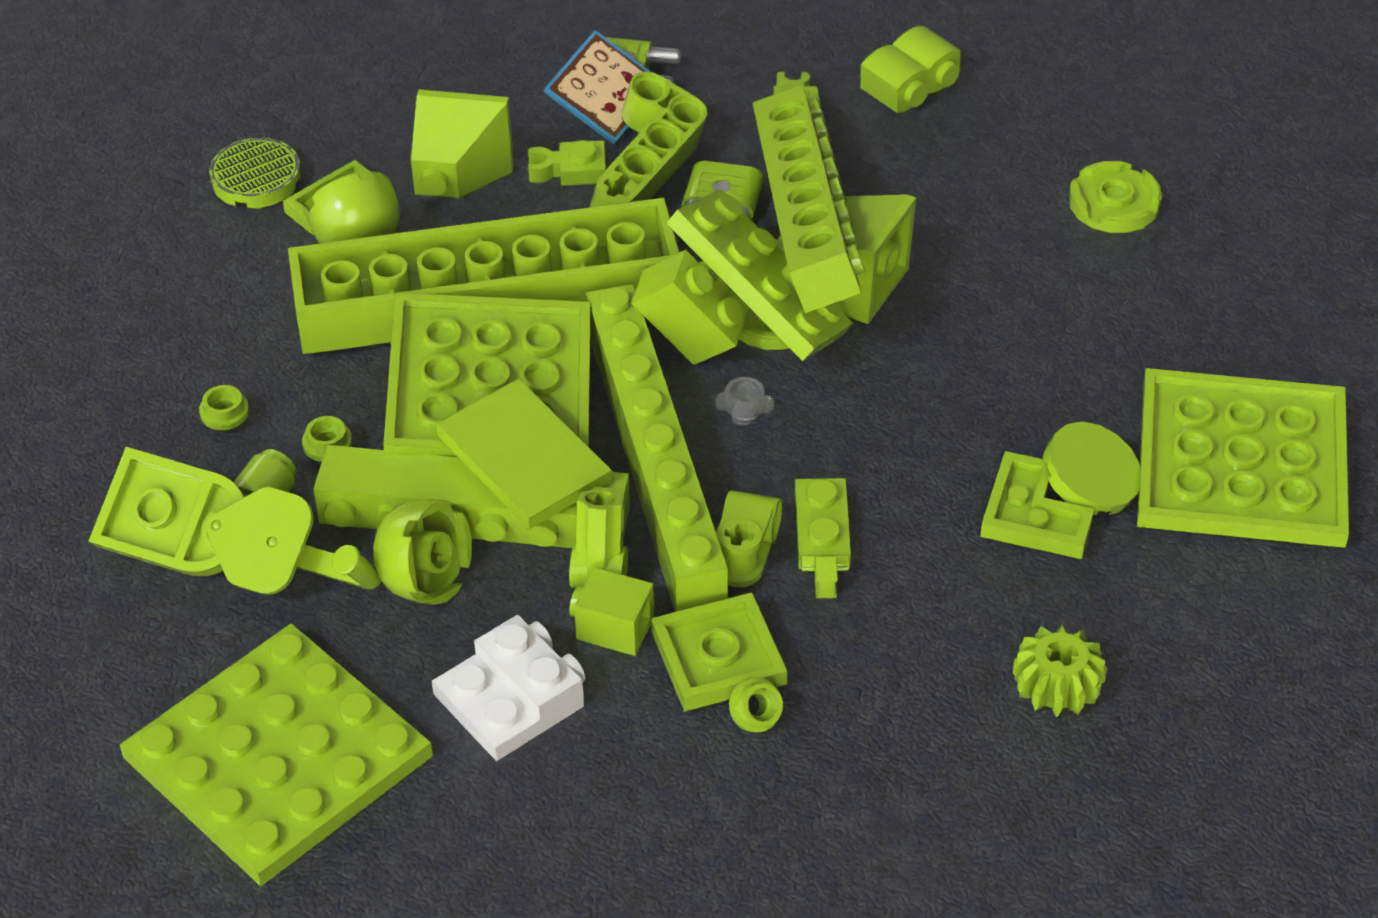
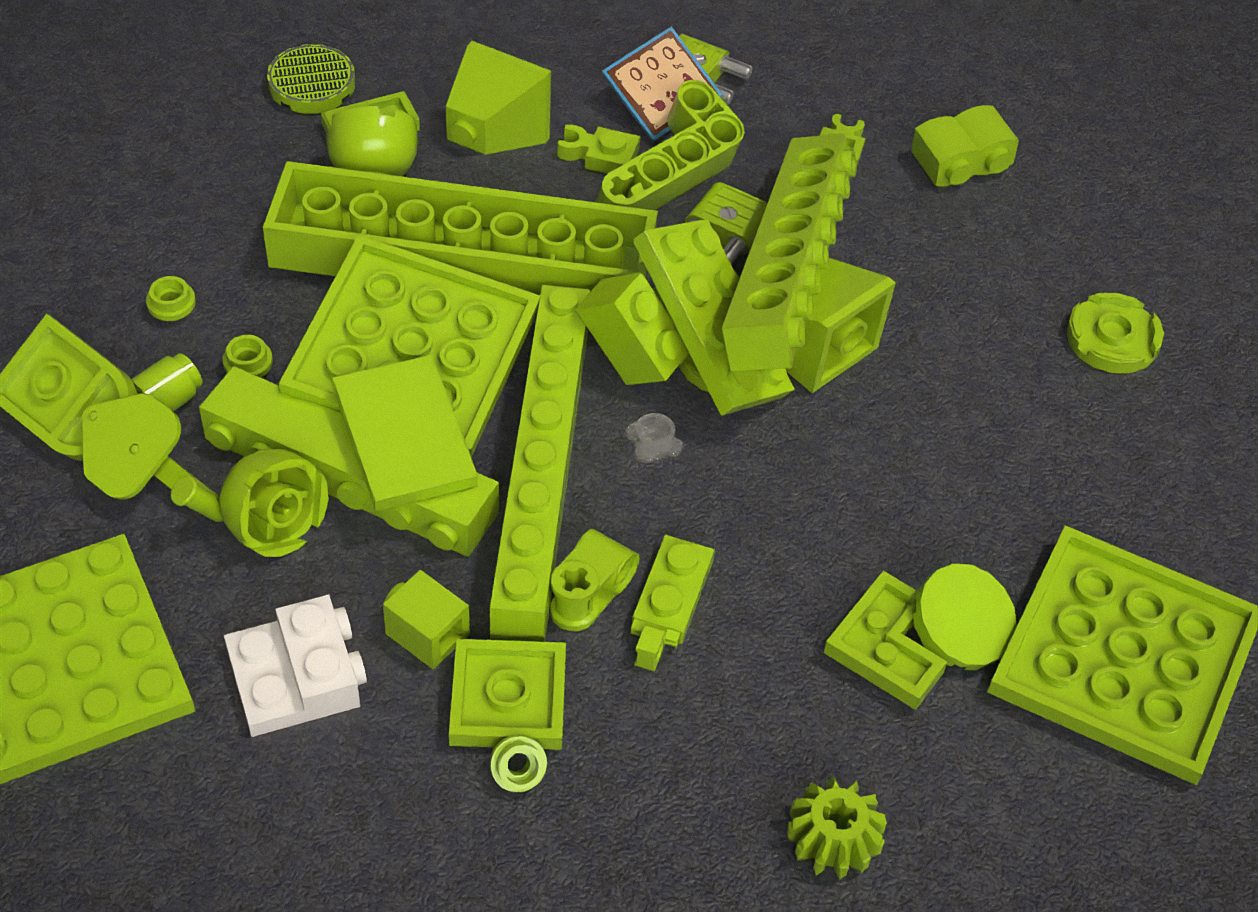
camera: 15 degrees right, 5 degrees up
(598, 535) = (439, 541): lime piece -> none

